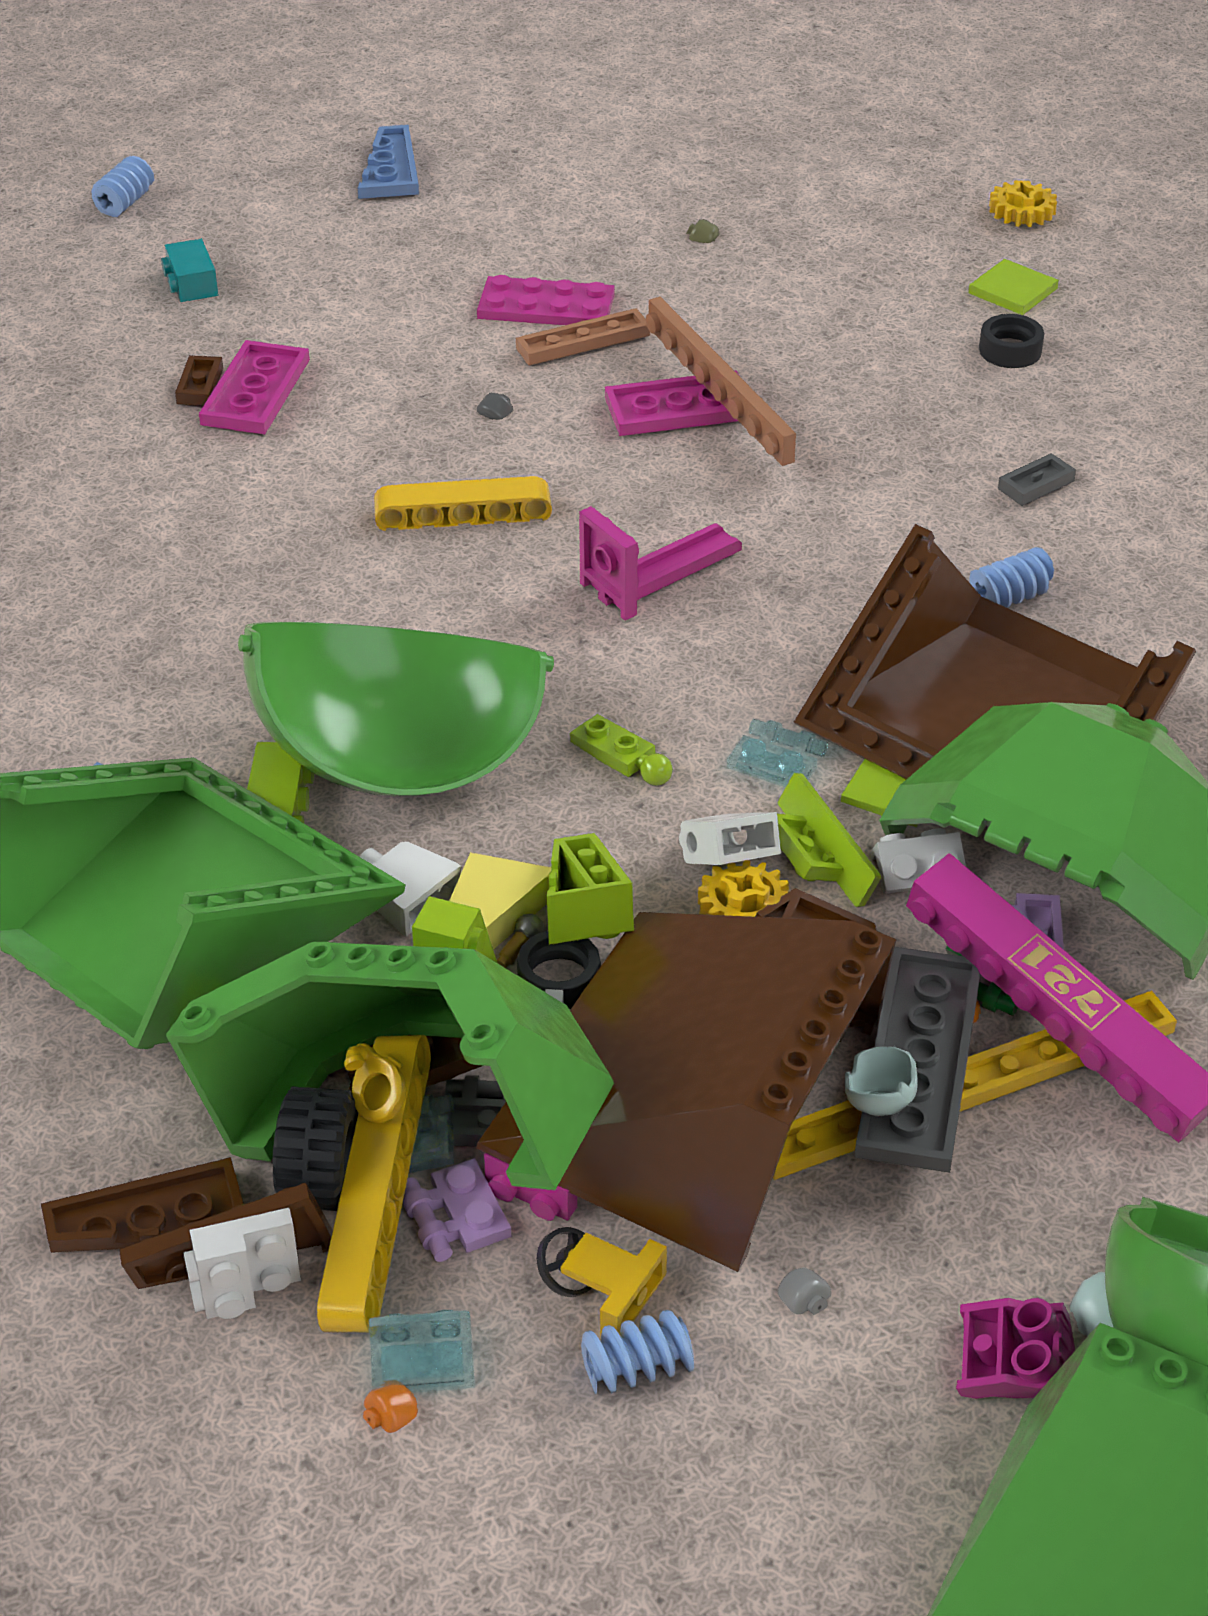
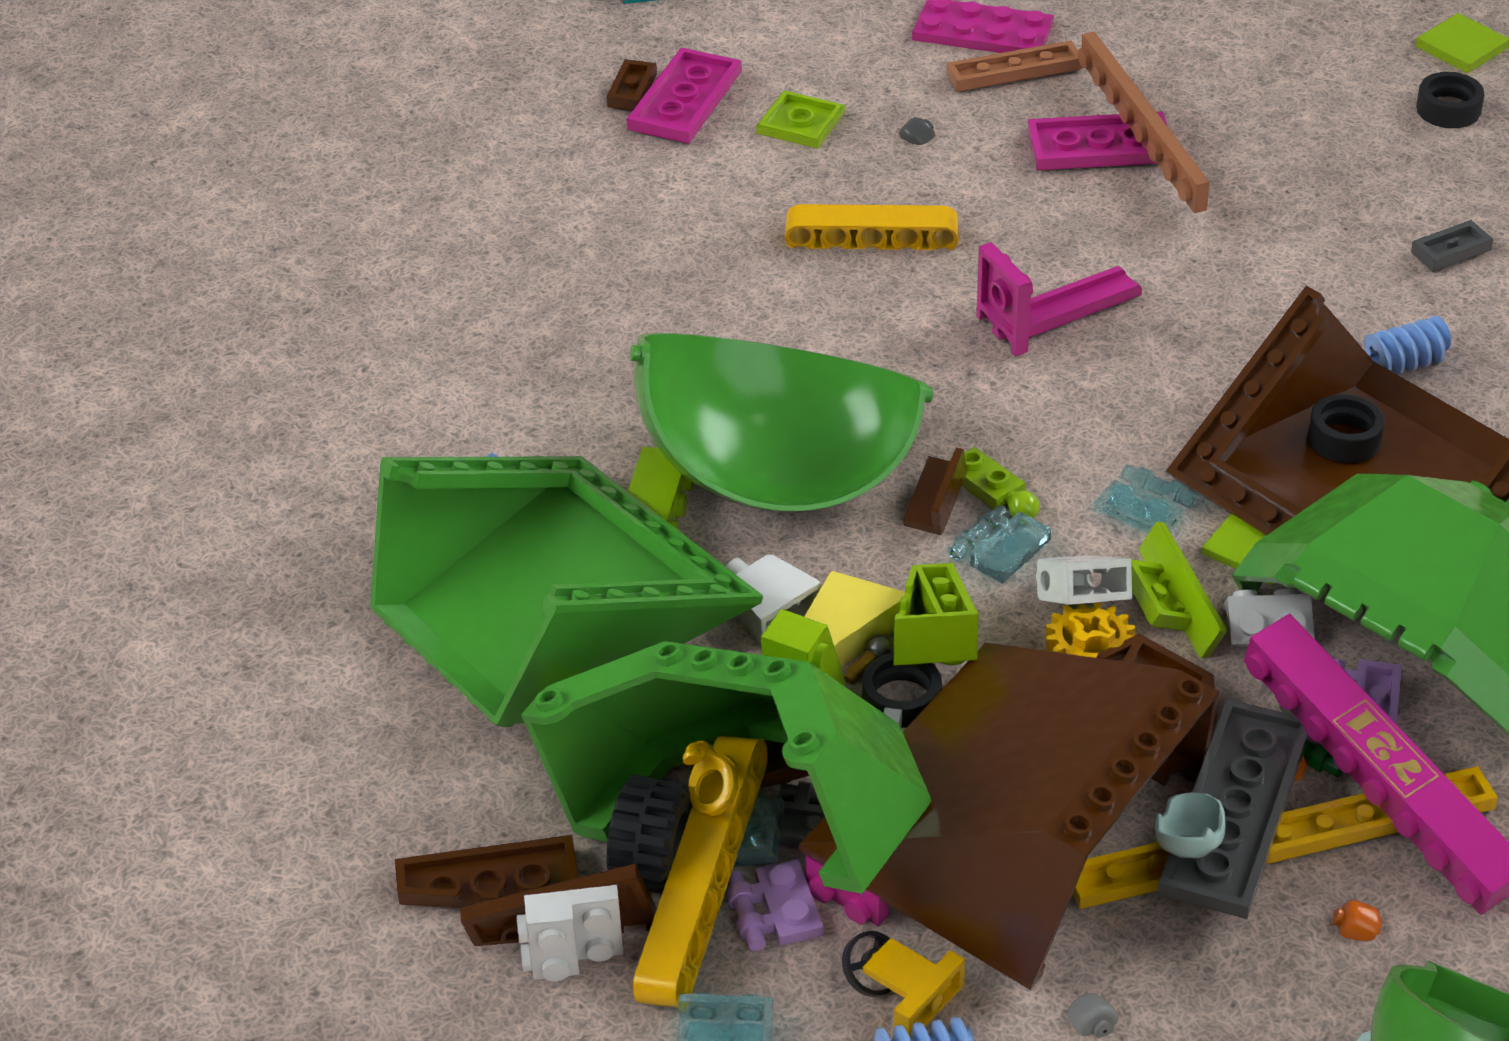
camera: 10 degrees right, 0 degrees up
(375, 402) = (800, 119): none -> lime tile
(566, 764) = (936, 493): none -> reddish brown panel
(647, 812) = (1007, 549): none -> clear light blue plate
(970, 647) = (1344, 446): none -> black tyre
(1058, 1161) = (1358, 920): none -> orange piece

